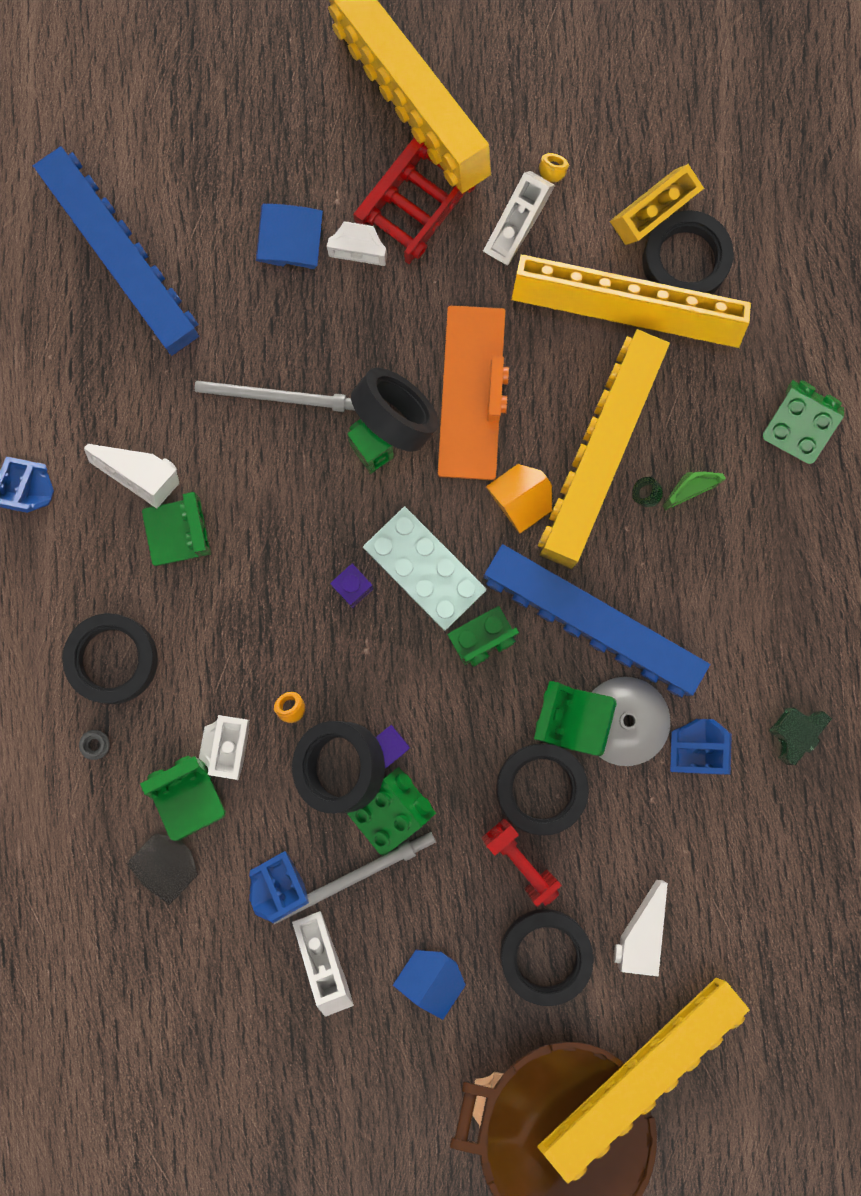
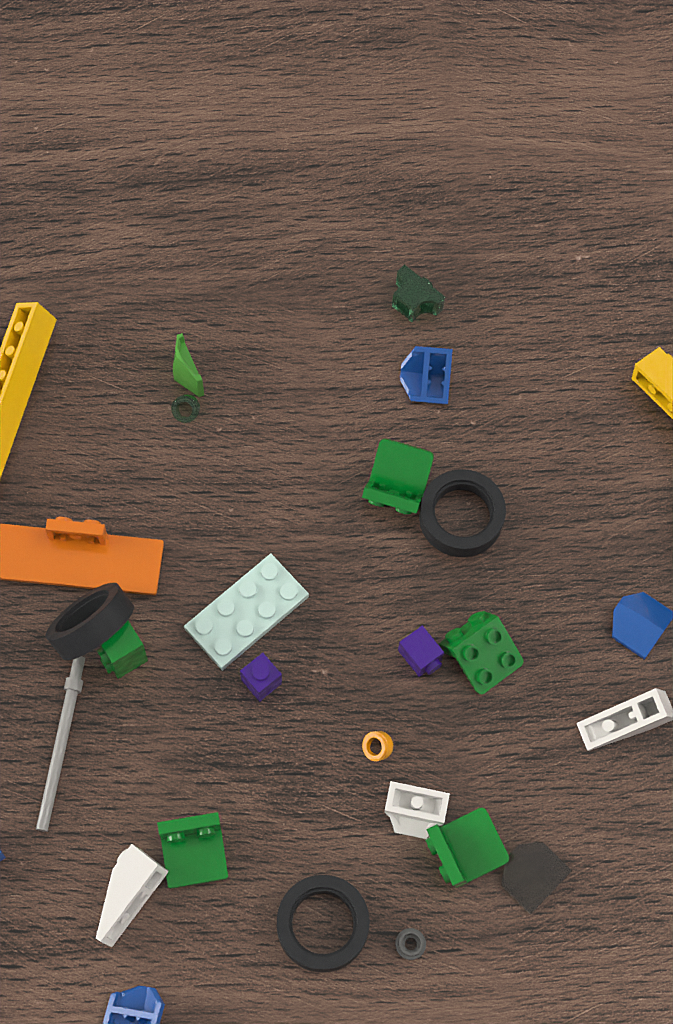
camera: 90 degrees left, 15 degrees down
(276, 888) = (556, 761): blue slope -> none
(305, 767) = (439, 728): black tyre -> none
(405, 851) = (520, 640): light grey bar -> none
(483, 635) = (318, 557): green bracket -> none
(522, 495) = (181, 518): light orange slope -> none
(542, 886) = (518, 528): red fence -> none
(572, 984) = (620, 485): black tyre -> none
(596, 621) = (305, 459): blue brick -> none
(605, 446) = (145, 438): yellow brick -> none
(642, 938) = (597, 433): white slope -> none
(651, 721) = (387, 419): light grey dish -> none
(804, 422) = (131, 270): bracket -> none

